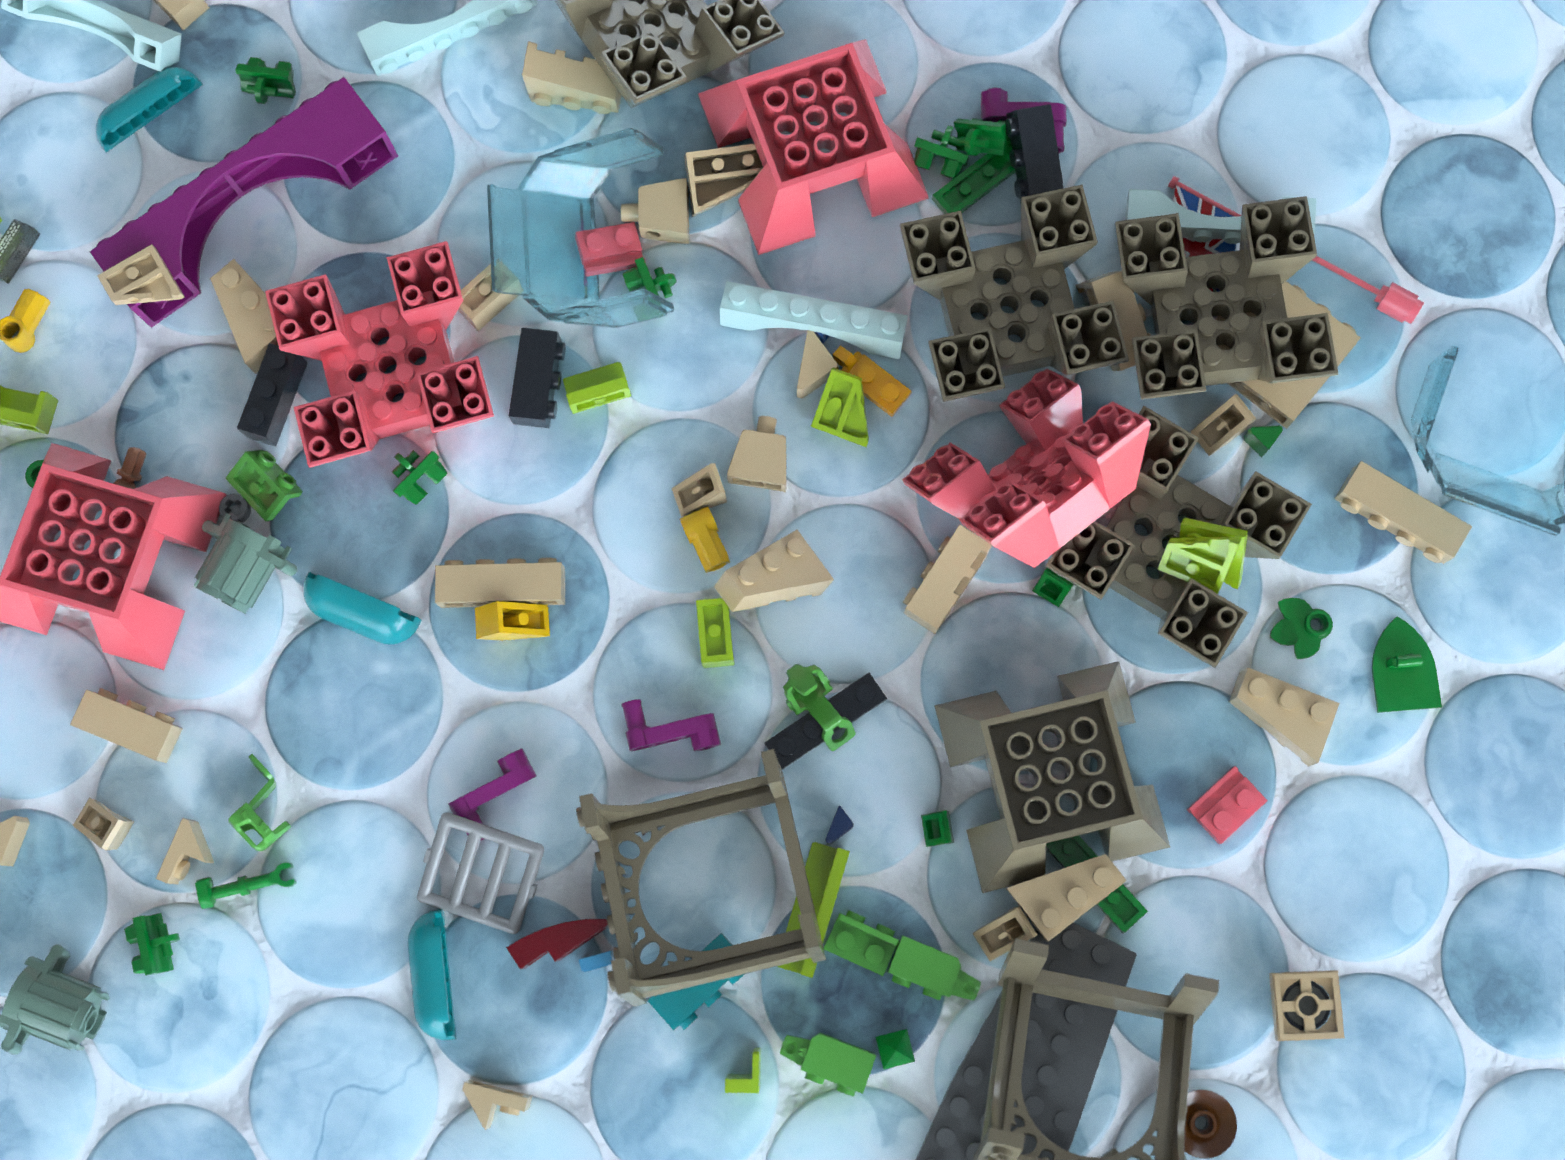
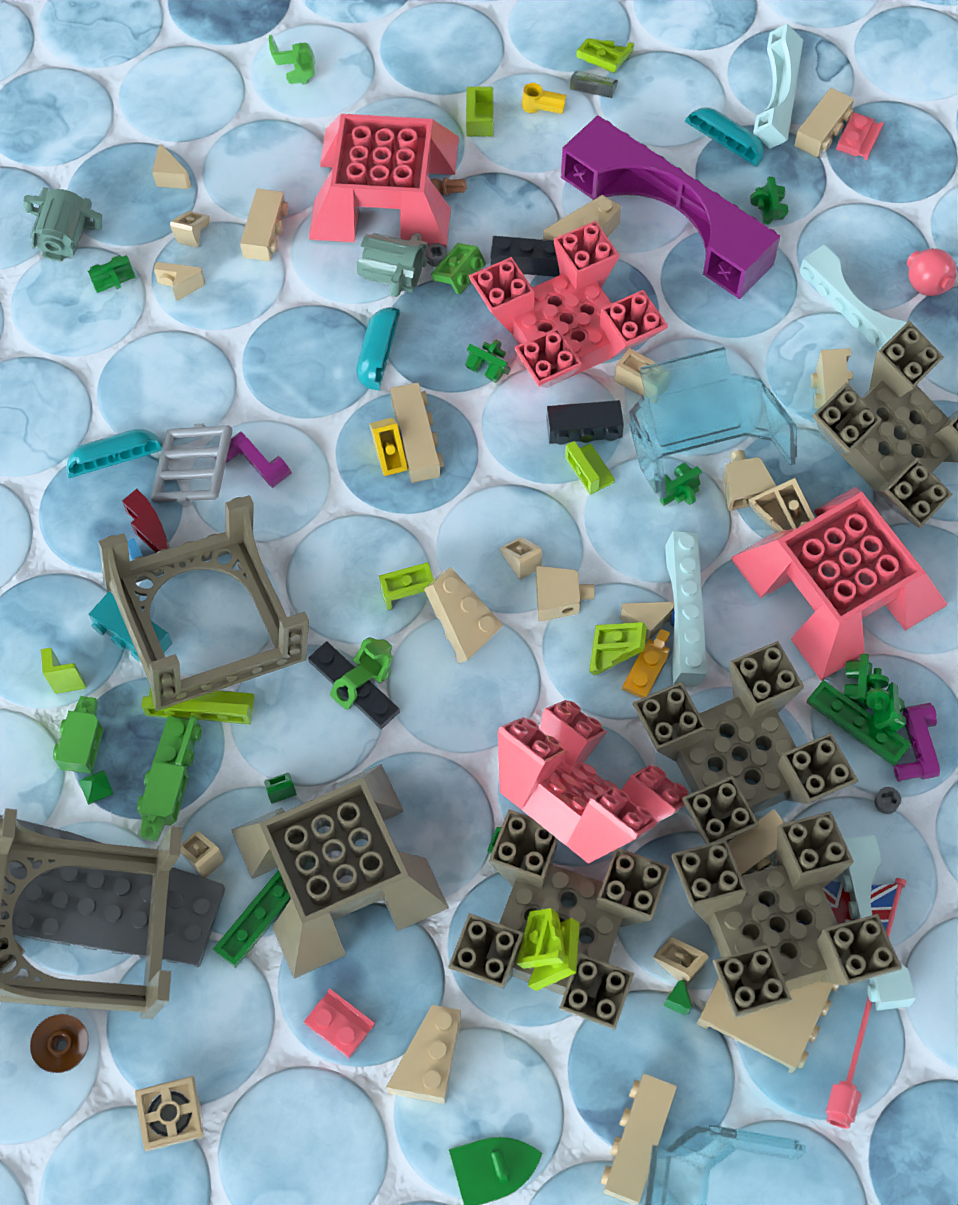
camera: 75 degrees right, 15 degrees down
(140, 279) = (583, 146): tan wing -> none
(208, 893) = (152, 299): green piece -> none
(247, 819) = (209, 309): bright green piece -> none
(486, 1097) = (24, 505): tan slope -> none
(609, 248) = (704, 450): coral plate -> none
(700, 729) = (328, 591): magenta beam -> none
(702, 532) = (488, 562): yellow piece -> none
(840, 825) = (268, 707): dark blue slope -> none
(946, 578) = (473, 747): tan wedge -> none
(1034, 151) = (884, 748): black brick -> none
(1066, 894) = (233, 886): tan wedge -> none
(1078, 160) = (895, 798): none -> dark grey bush
(1297, 629) = (512, 1060): green plate -> none

